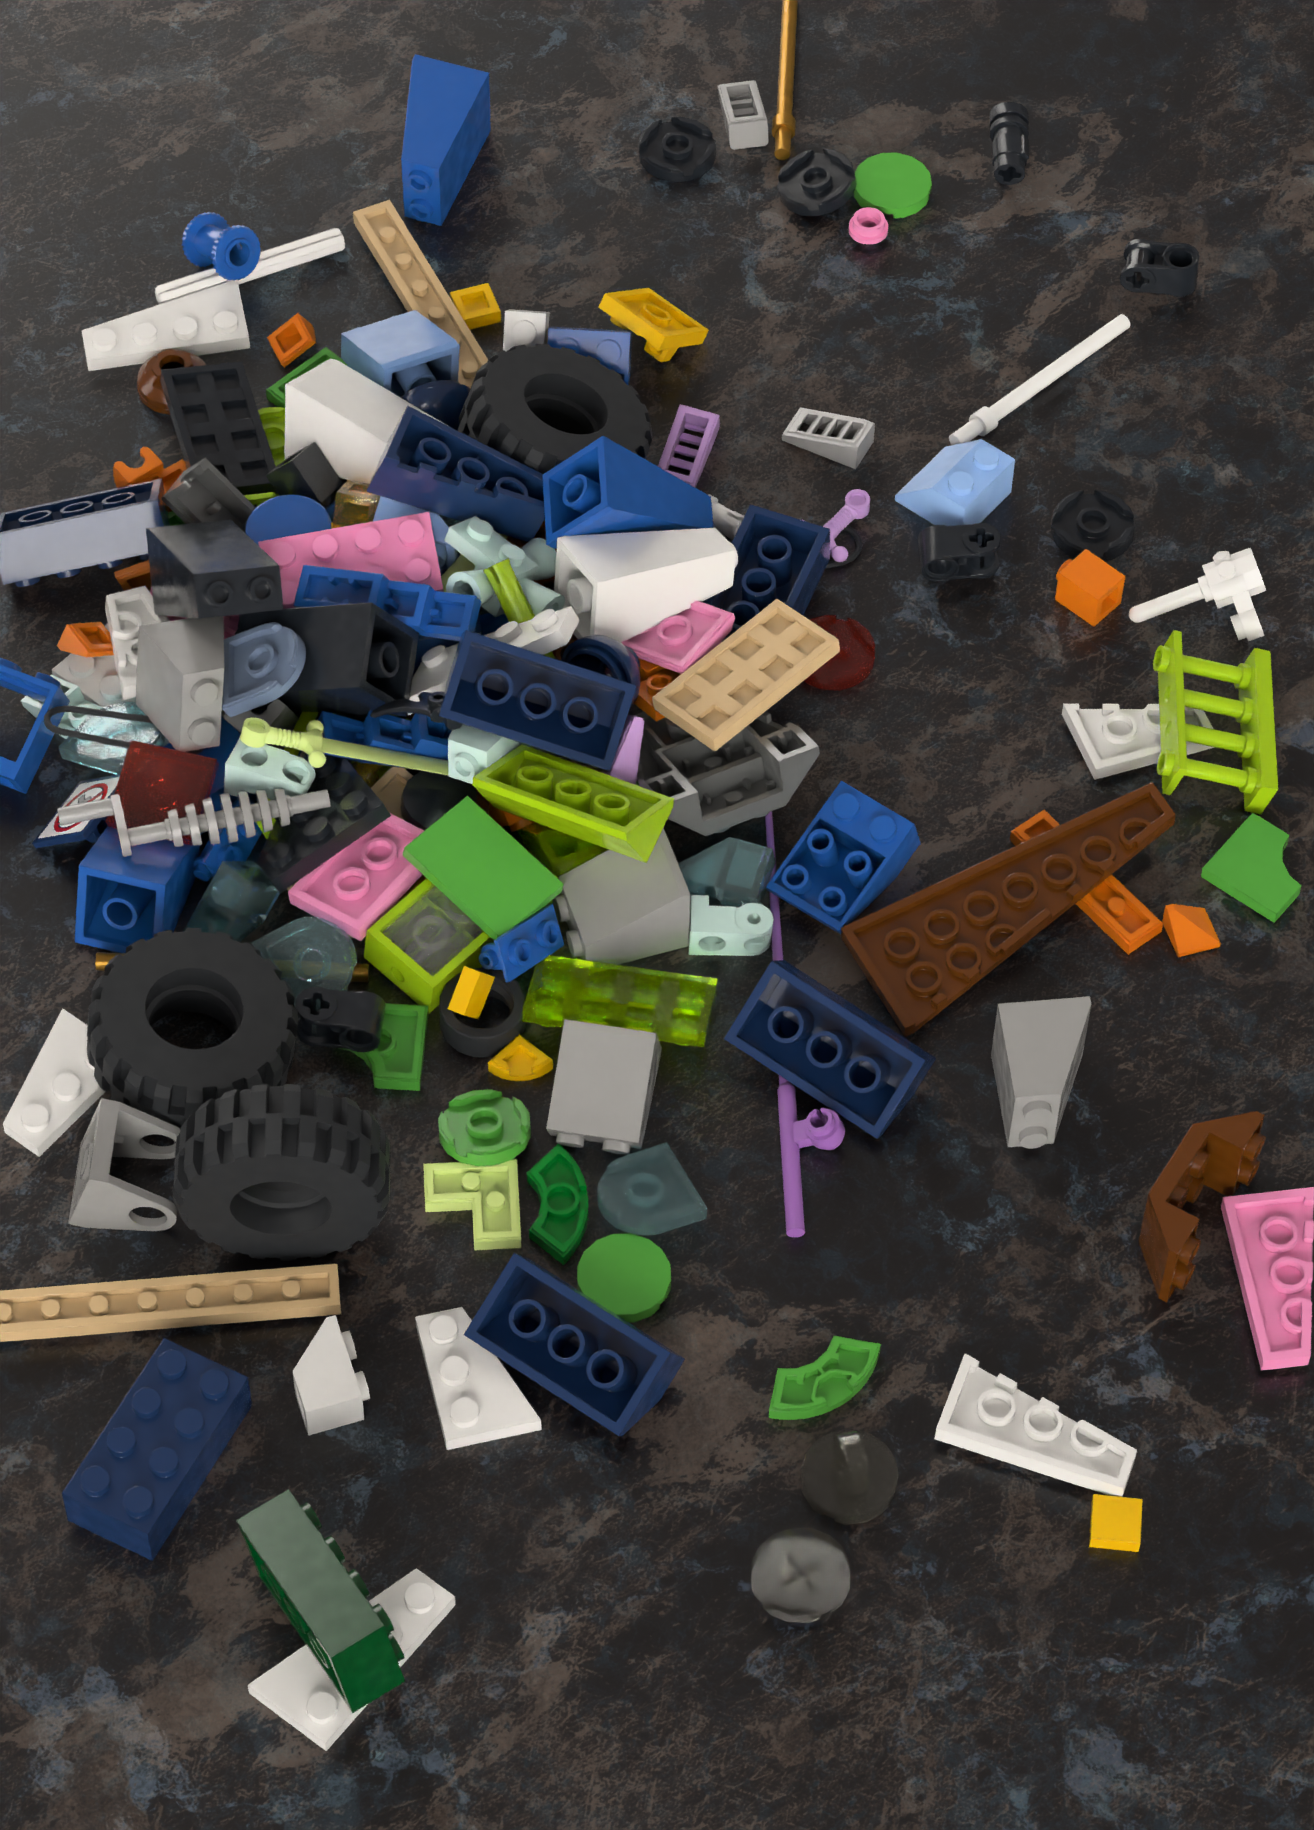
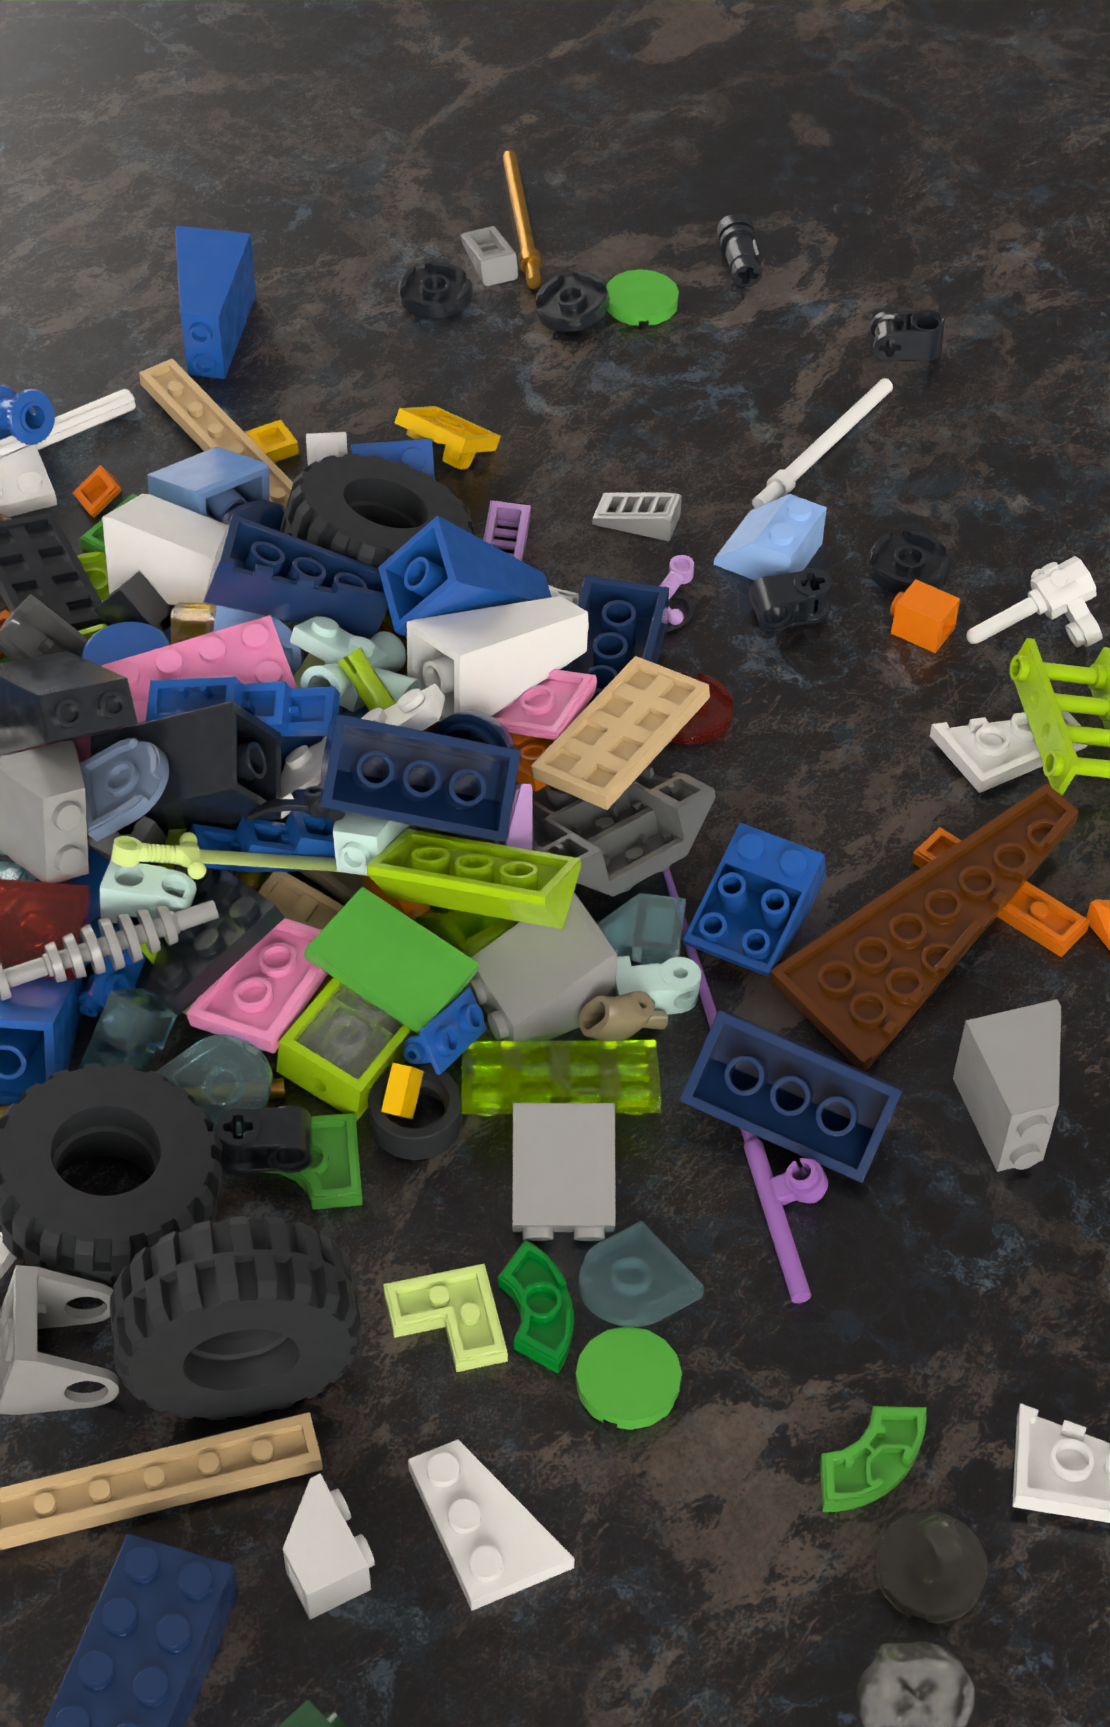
camera: 10 degrees left, 5 degrees down
(433, 795) = (322, 894): black tile -> none
(484, 1128) = (442, 1235): bright green tile -> none
(520, 1061) = (465, 1157): yellow tile -> none
(573, 1346) = (593, 1466): dark blue slope -> none
(688, 952) = (620, 1016): none -> dark tan piece
(868, 226) = (629, 332): bright pink plate -> none

